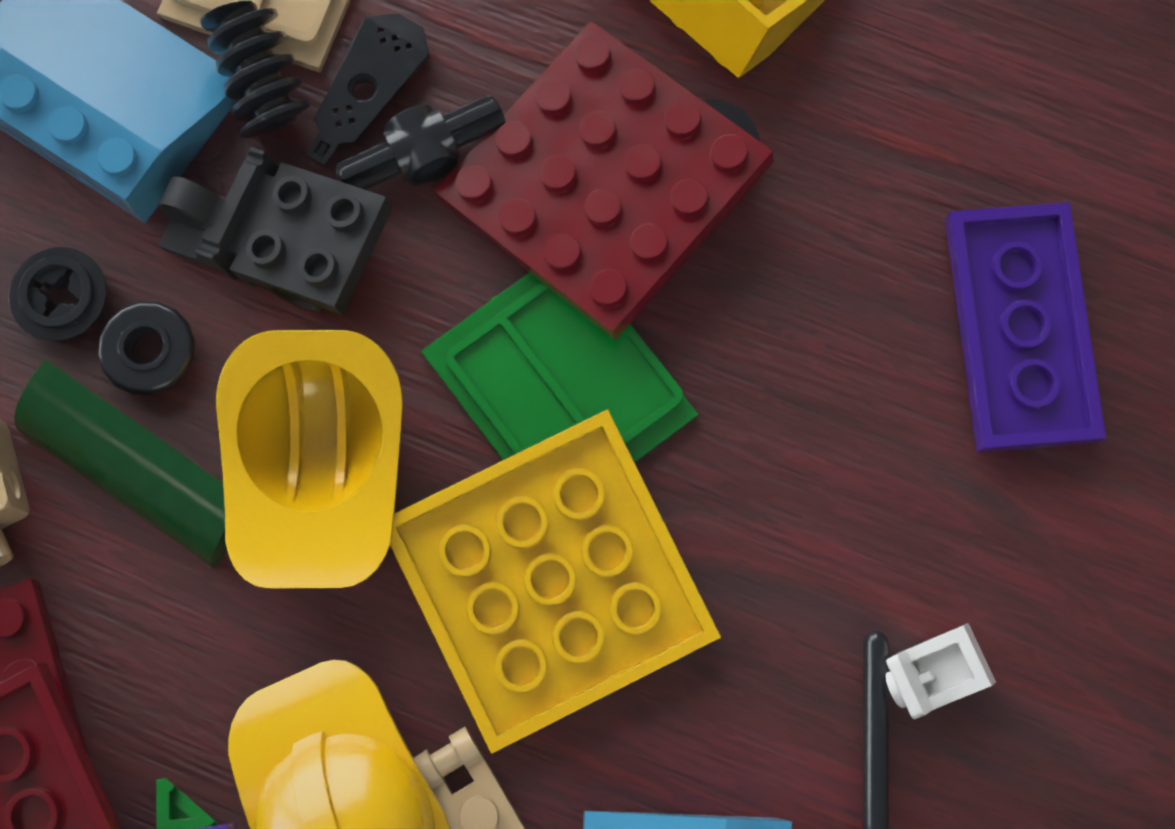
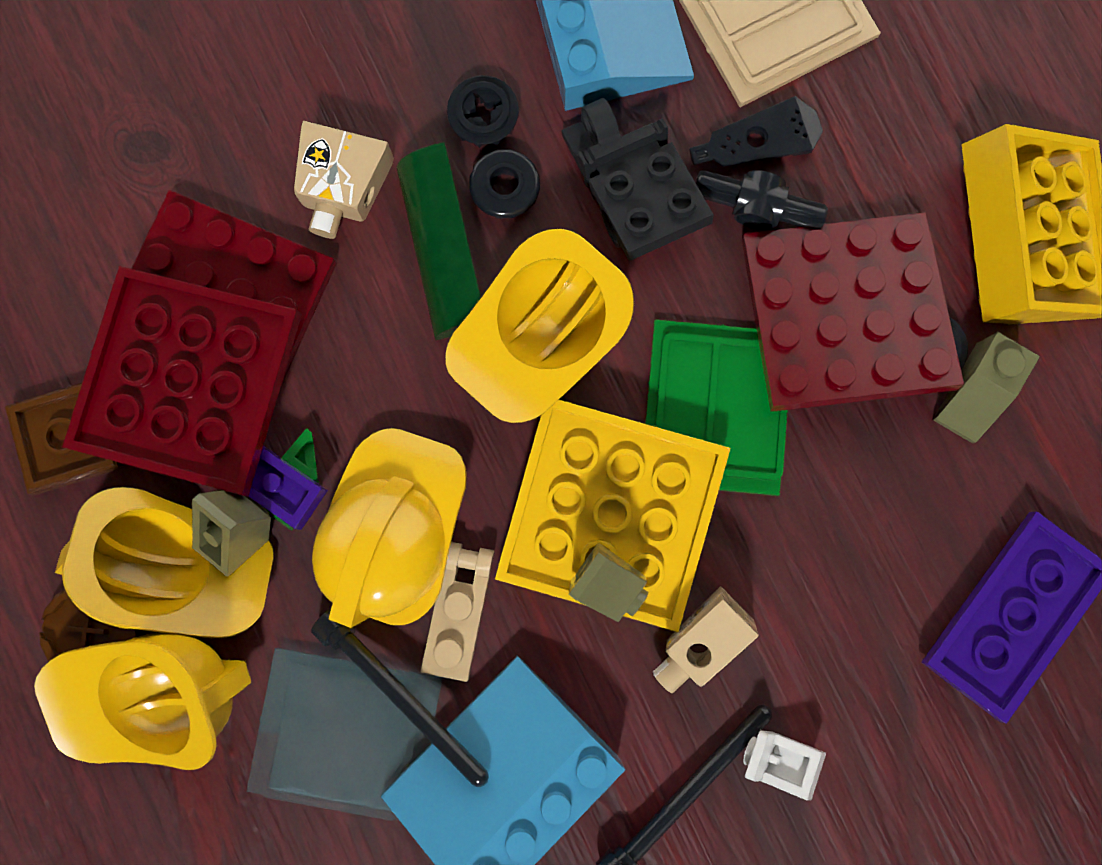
camera: 45 degrees right, 5 degrees up
(253, 67) = (704, 71): black piece -> none
(609, 651) = (608, 584): none -> olive slope
(750, 594) = (716, 624): none -> tan torso
(799, 130) = (991, 383): none -> olive slope

